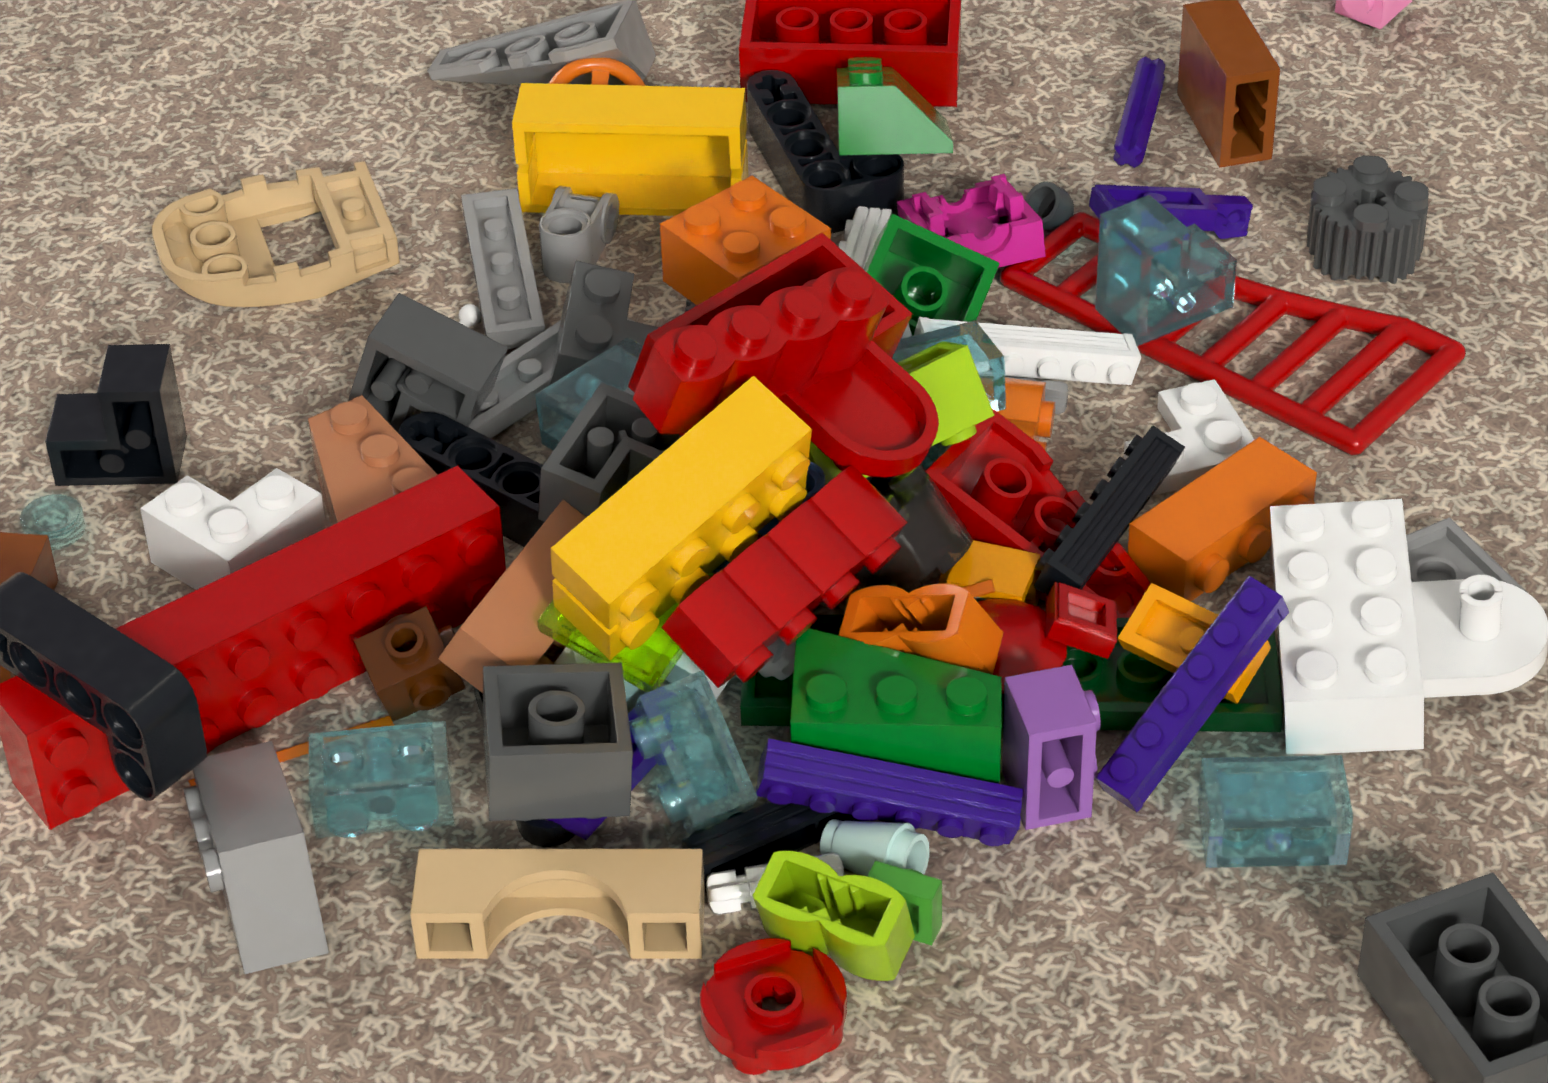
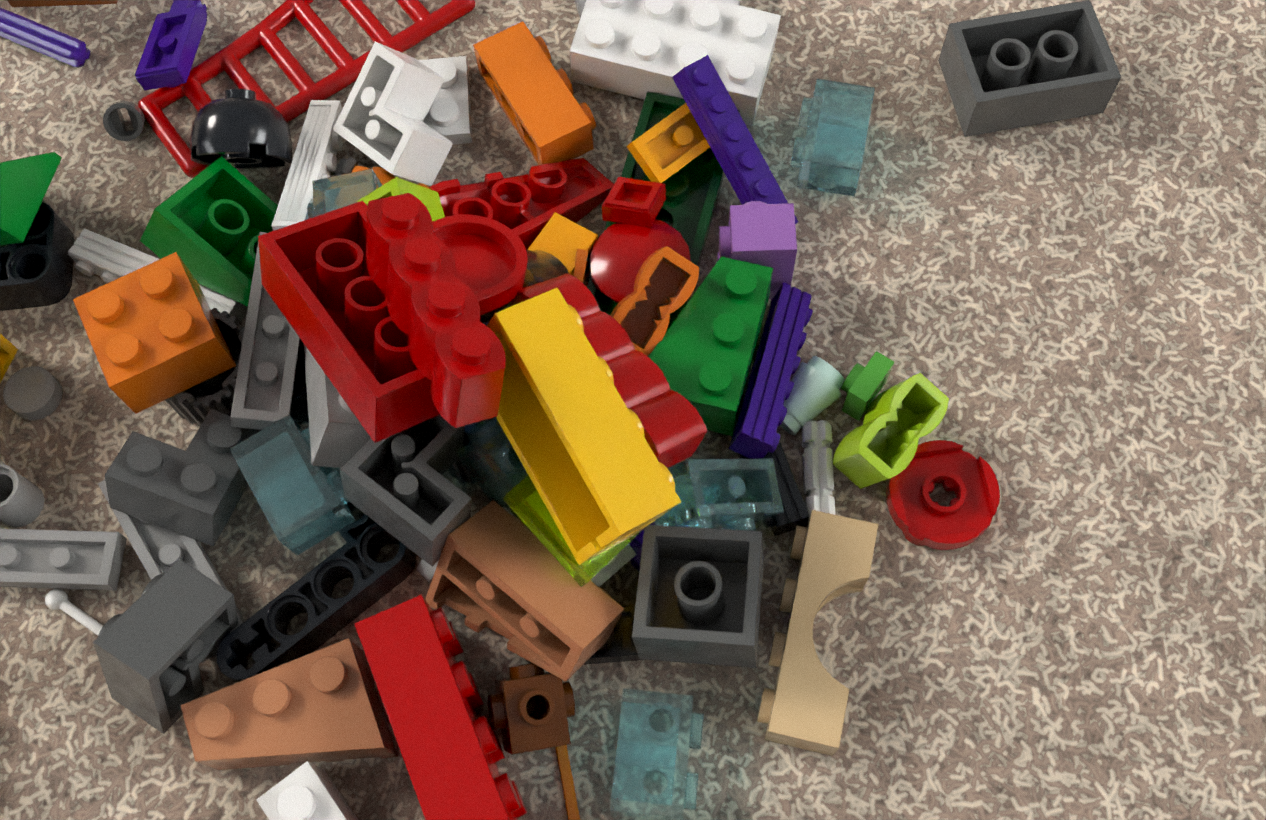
camera: 75 degrees left, 25 degrees up
(976, 218) = (143, 182): dark pink brick -> none
(1046, 274) = (242, 132): none -> black cylinder
(1114, 507) = (525, 159): black piece -> none
(1118, 391) = (388, 114): none -> white brick
(1158, 271) = (269, 57): clear light blue brick -> none

